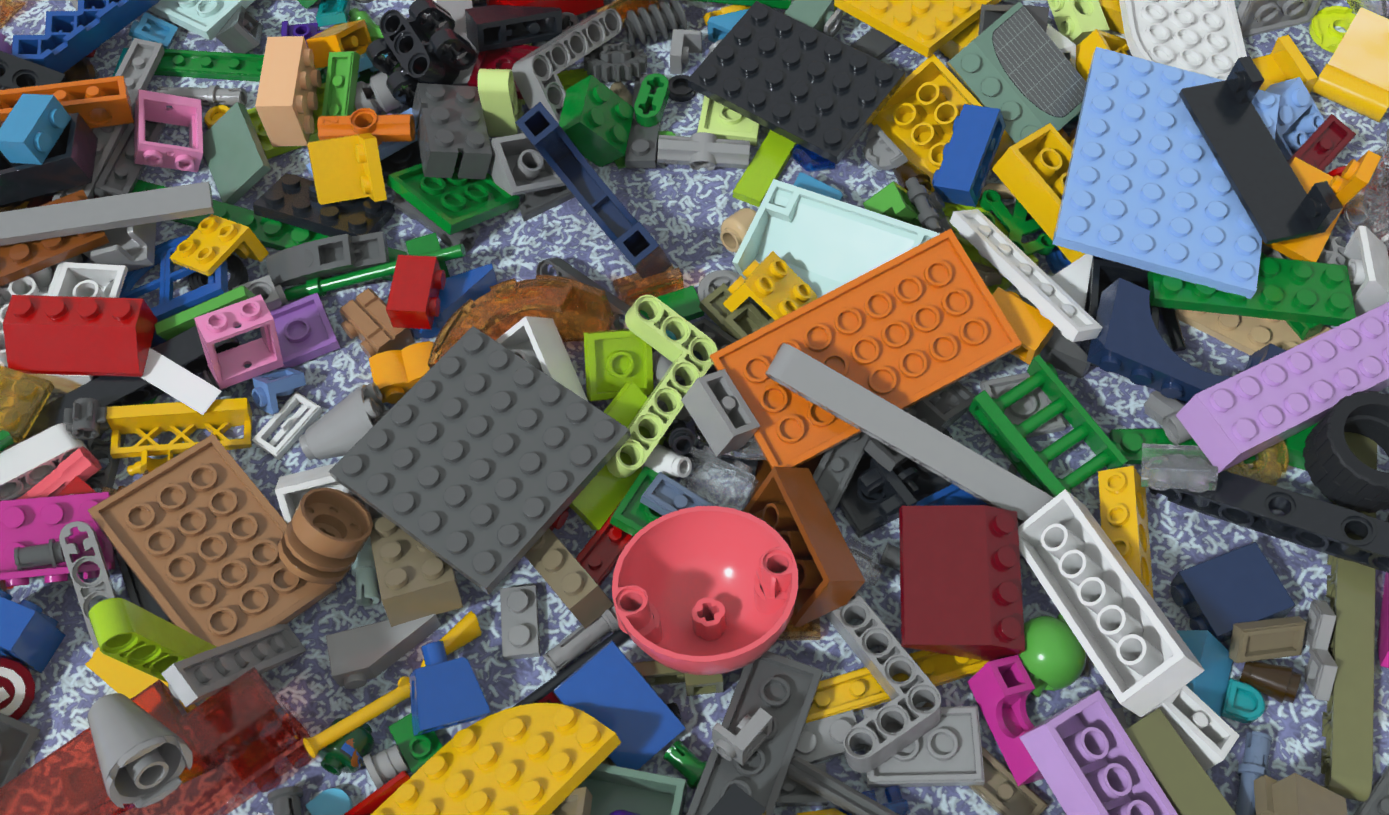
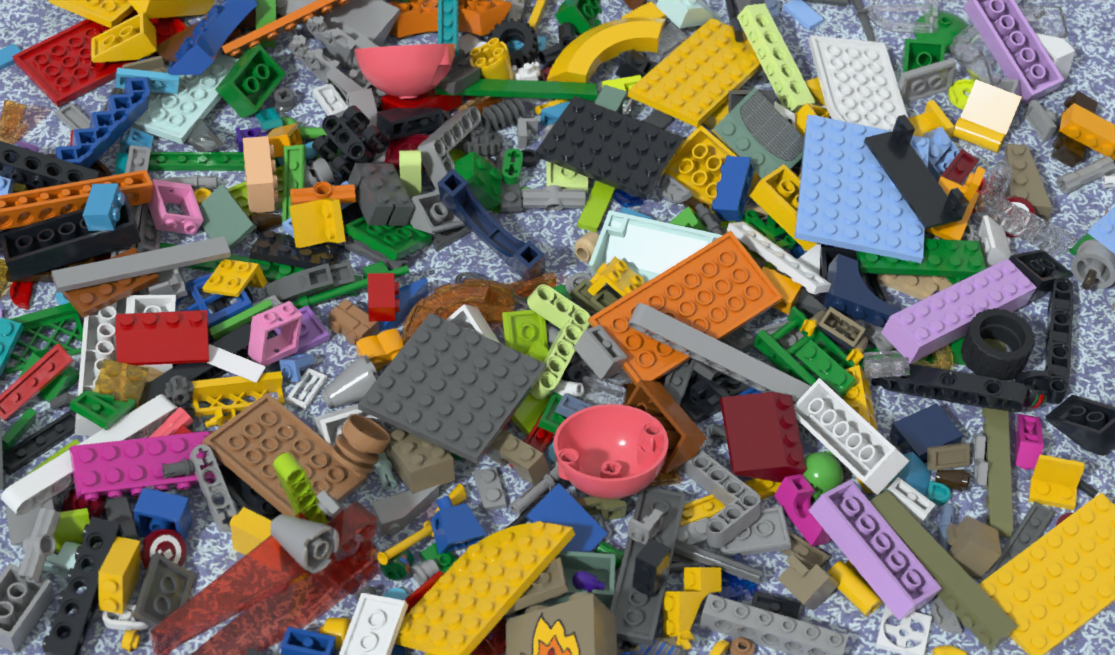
camera: 15 degrees left, 10 degrees down
(289, 160) = (265, 221): none -> dark brown cone
(1079, 468) = (826, 368): none -> green plate
(1109, 400) = (839, 329): none -> dark tan torso

